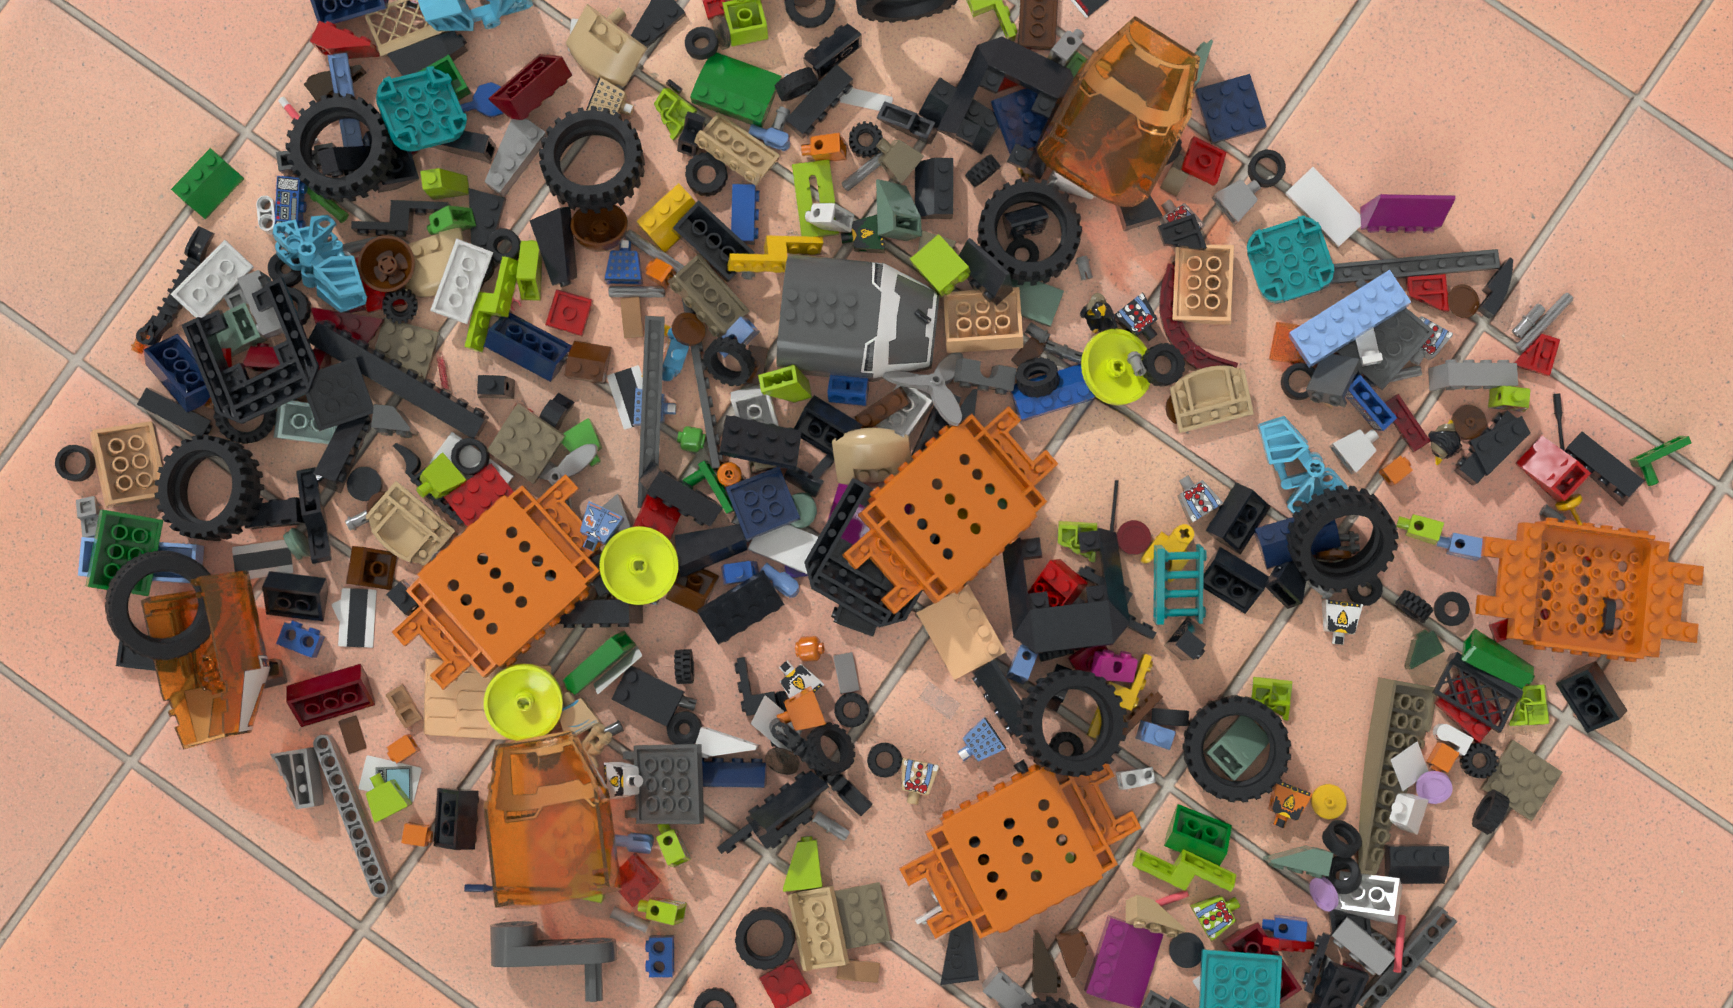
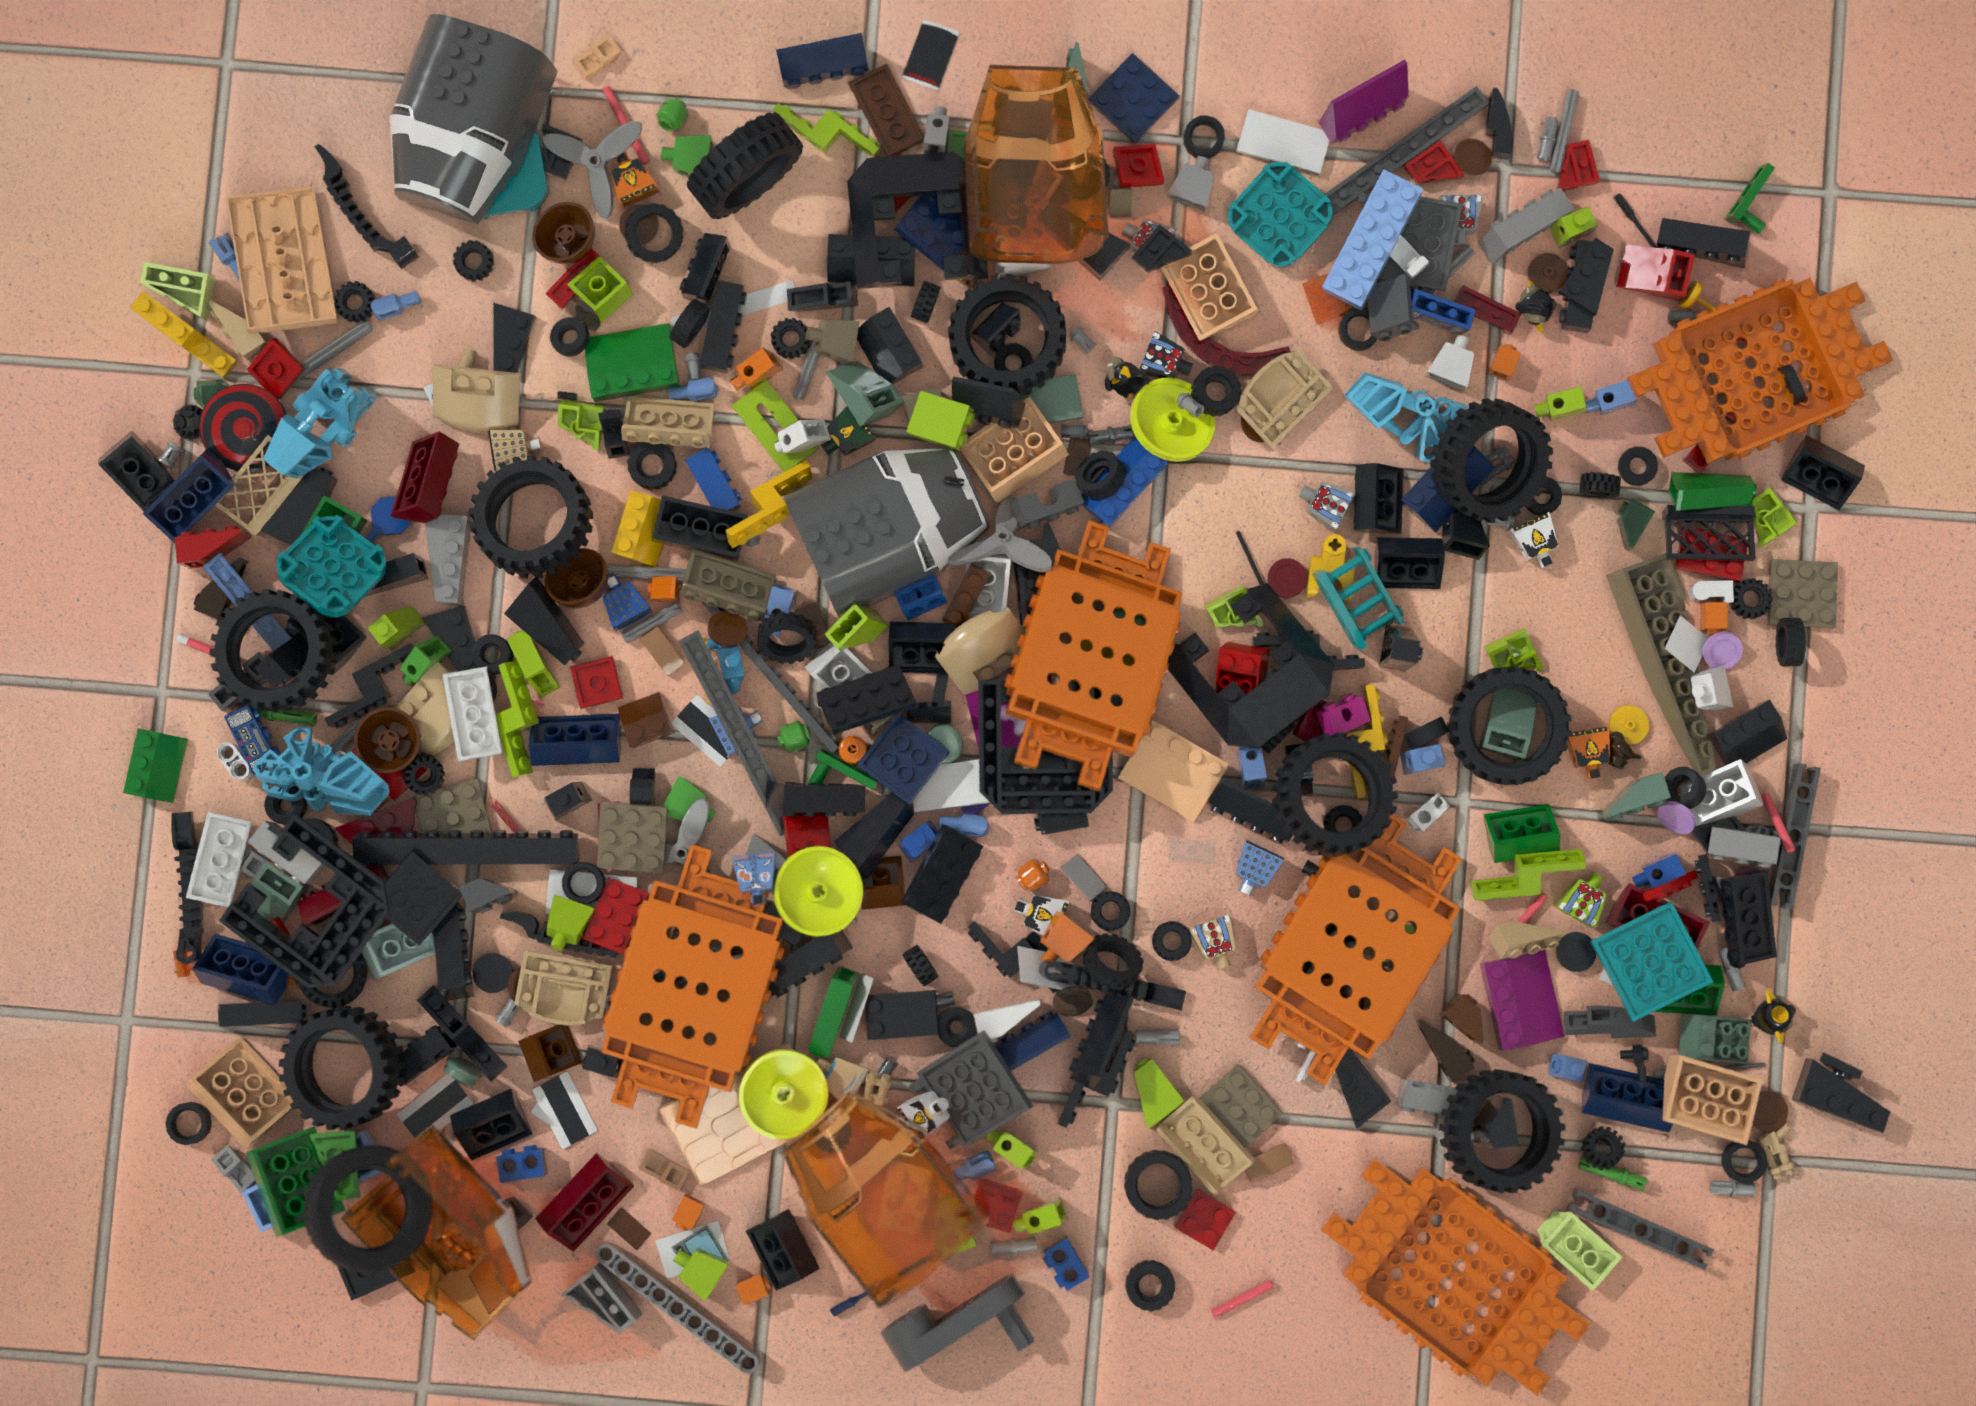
camera: 30 degrees left, 0 degrees up
(166, 541) = (331, 1144): none -> bright green wing
(1310, 817) = (1620, 751): none -> dark brown animal
(1333, 554) = (1492, 480): reddish brown piece -> none
(1338, 847) = (1662, 763): black tyre -> none

